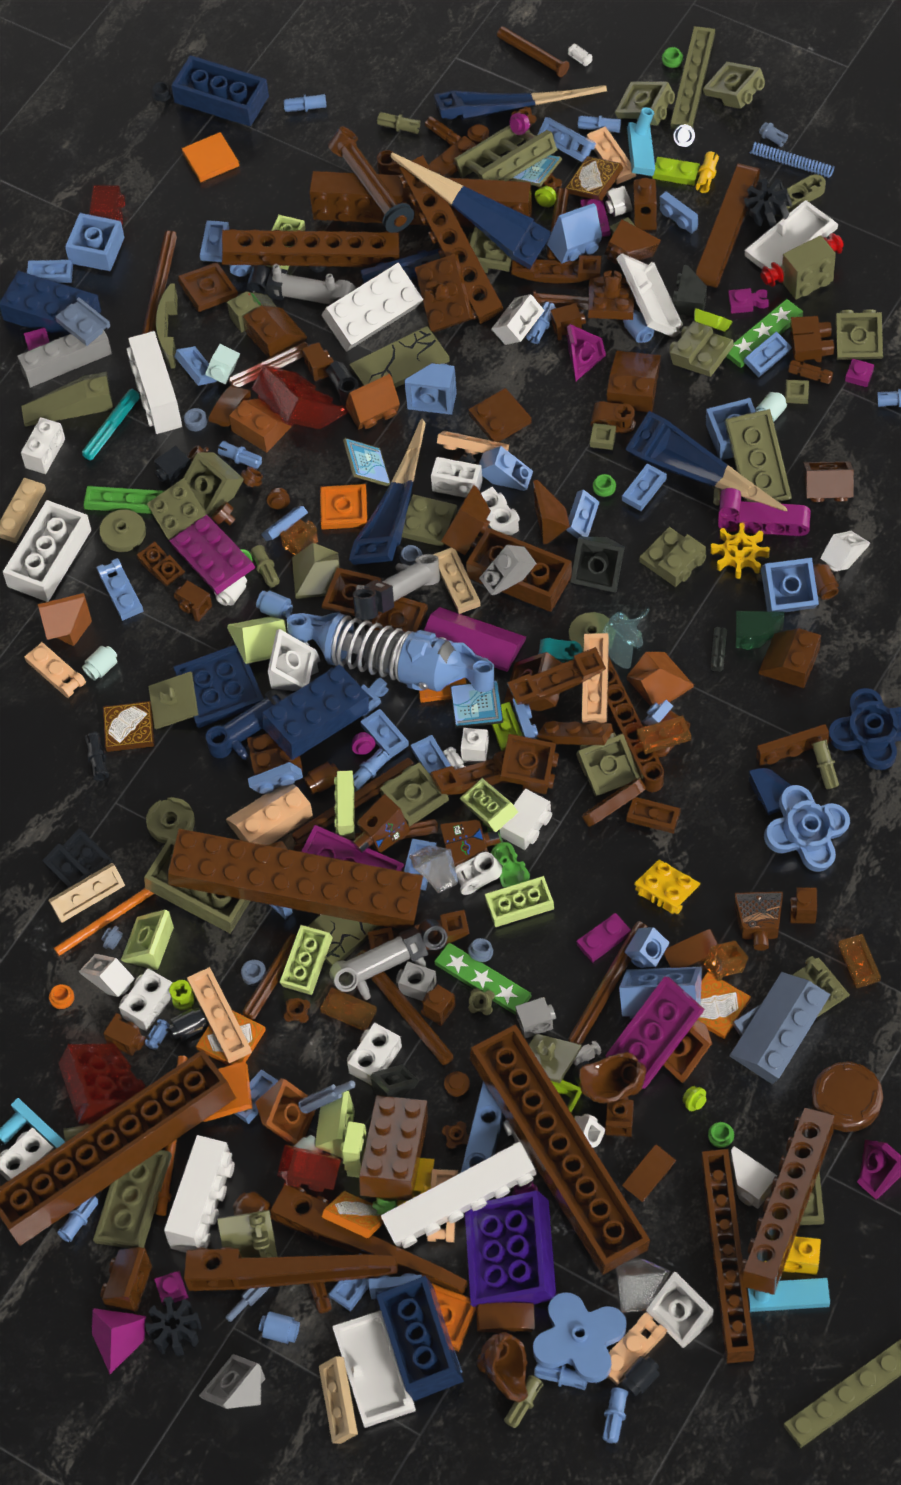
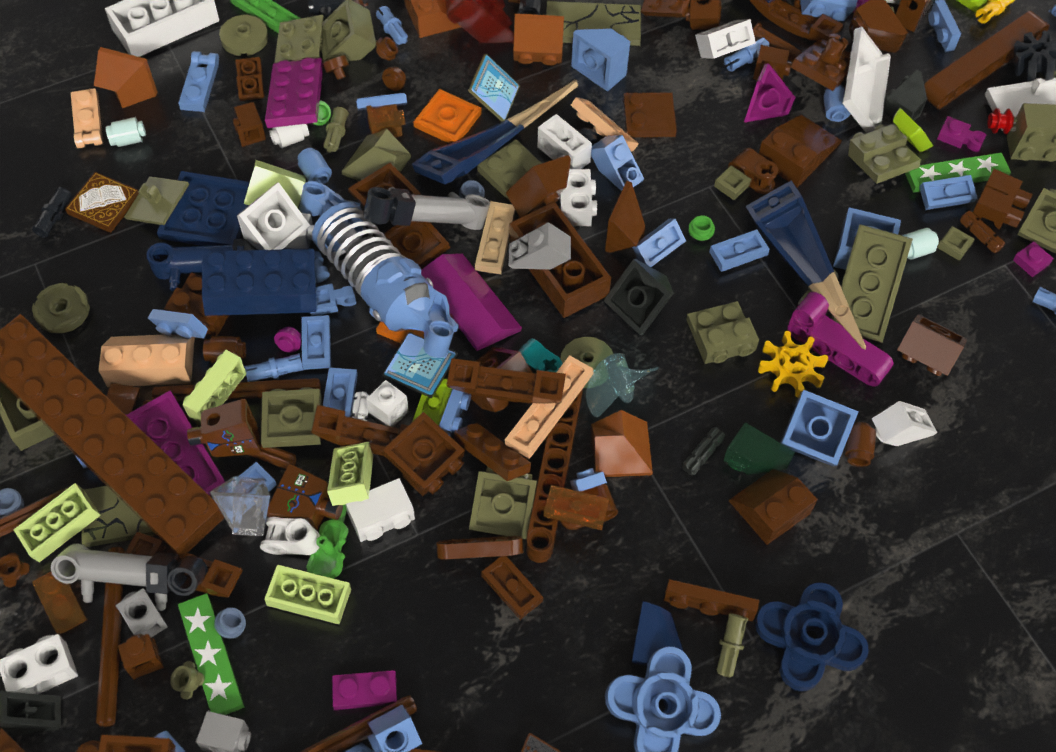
camera: 25 degrees right, 0 degrees up
(666, 885) = (470, 674): yellow hinge -> none

